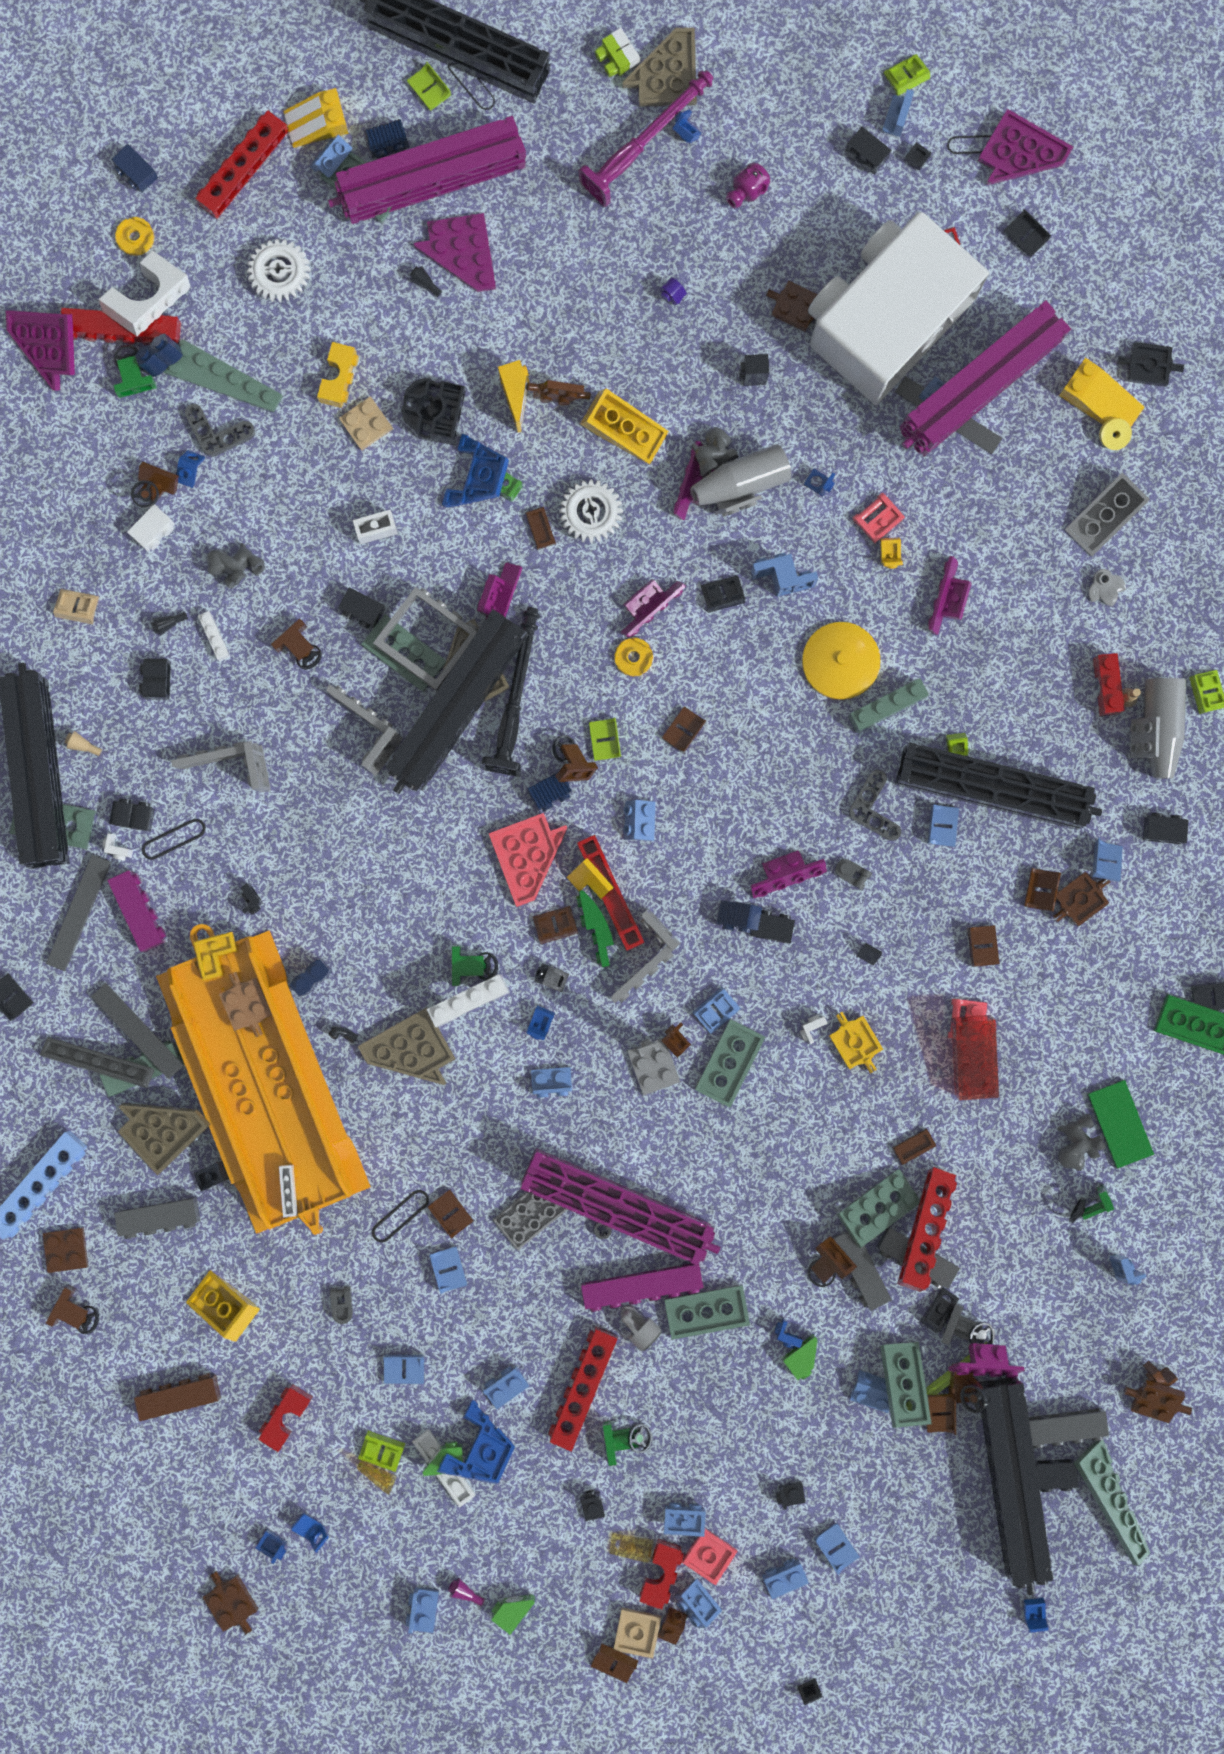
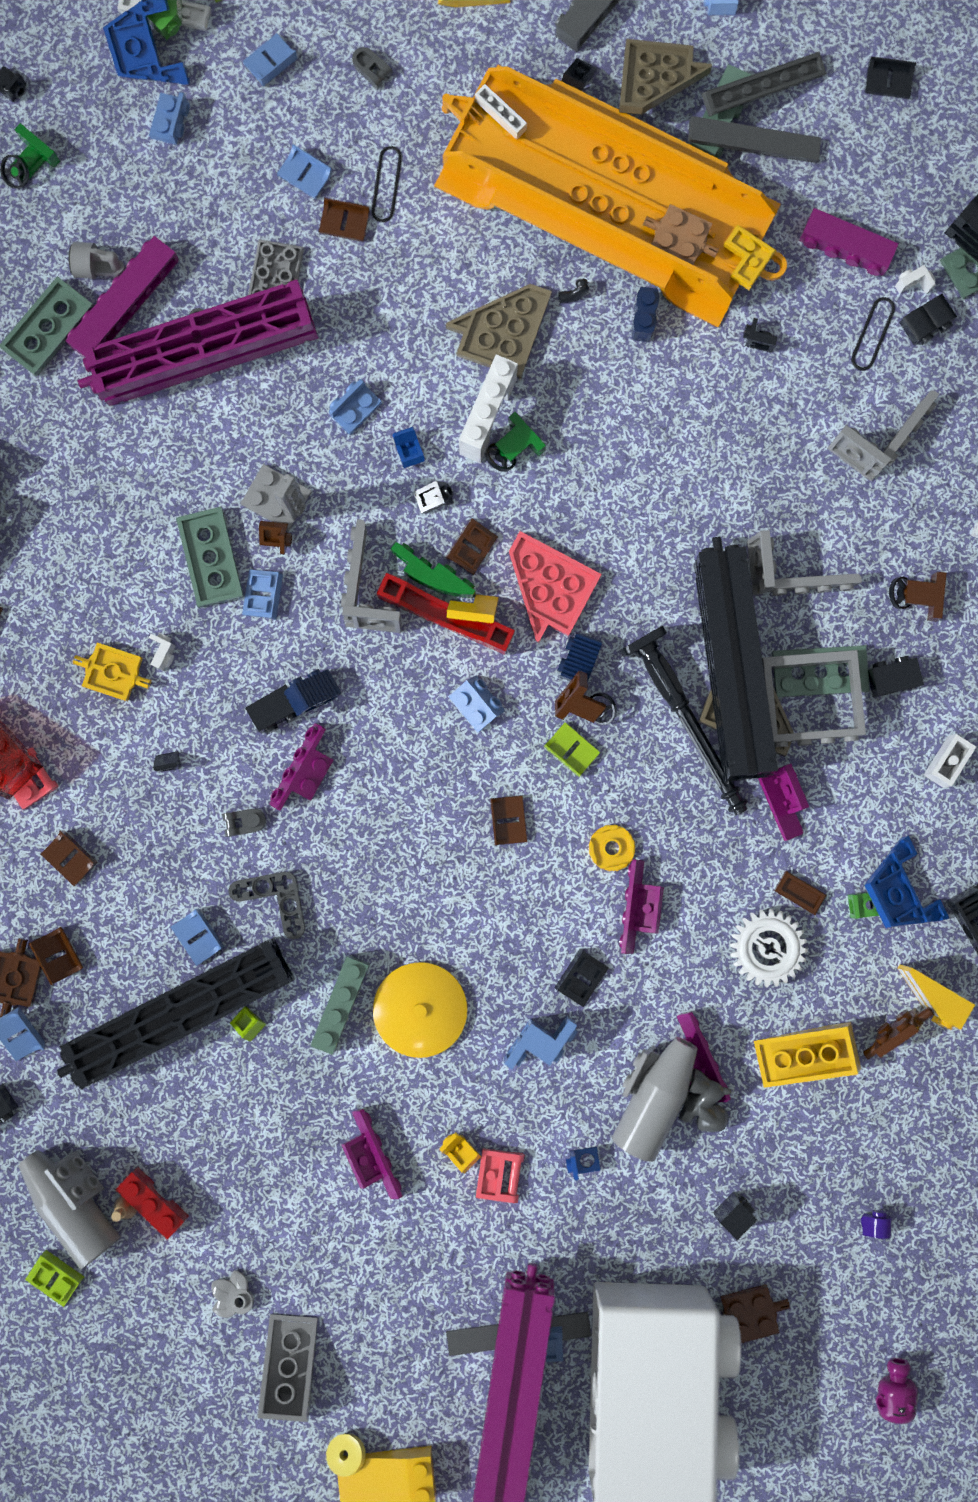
camera: 140 degrees right, 0 degrees up
(78, 913) = (896, 200): dark grey tile -> none
(567, 1438) = (79, 118): red brick -> none

